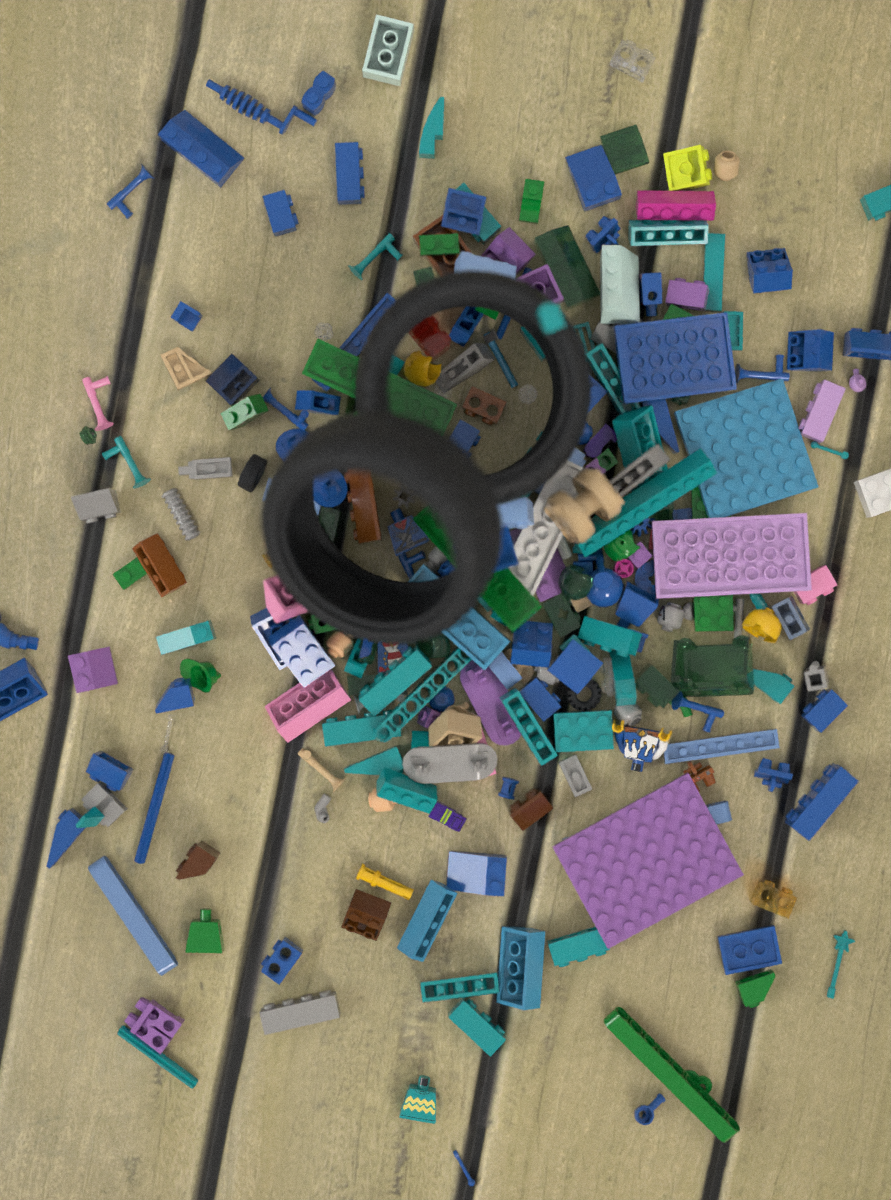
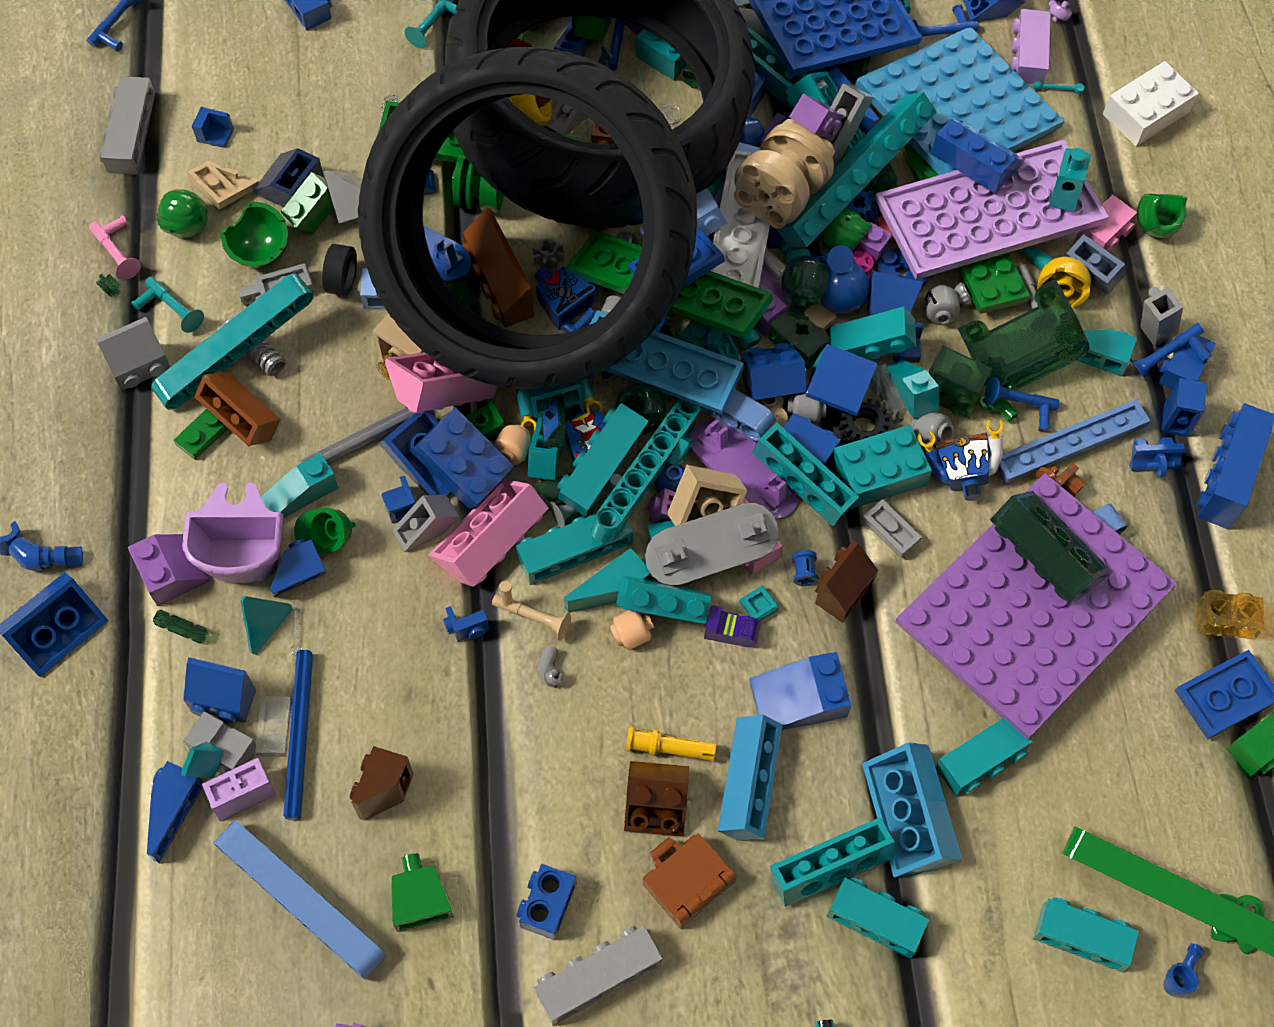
camera: 15 degrees left, 25 degrees down
(93, 713) = (180, 626): none -> clear green axle
(109, 837) = (238, 789): none -> lavender hinge
(124, 296) = (127, 125): none -> light grey brick
(137, 674) = (234, 540): none -> lavender piece
(139, 800) = (273, 726): none -> clear plate
(146, 726) = (262, 619): none -> teal piece
(150, 391) = (182, 213): none -> green piece
(166, 515) = (233, 340): none -> teal beam
(198, 430) = (256, 236): none -> green cylinder
(230, 609) = (363, 436): none -> light grey axle
(254, 663) = (398, 501): none -> blue panel
(267, 685) = (425, 521): none -> light grey slope
(275, 419) = (345, 192): none -> light grey slope
(280, 769) = (469, 627): none -> blue bracket
(370, 970) = (687, 878): none -> dark orange piece
(452, 683) = (681, 451): none -> teal tile
(470, 802) = (759, 604): none -> teal tile
(598, 1071) = (1086, 934): none -> teal brick
(619, 474) = (816, 116): none -> medium lavender brick
(668, 832) = (1049, 546): none -> clear green slope
(737, 512) = (975, 155): none -> blue slope
(791, 558) = (1074, 170): none -> teal torso
(805, 747) = (1184, 407): none -> blue brick
(829, 699) = (1189, 336): none -> blue piece
(857, 584) = (1161, 214): none -> green piece

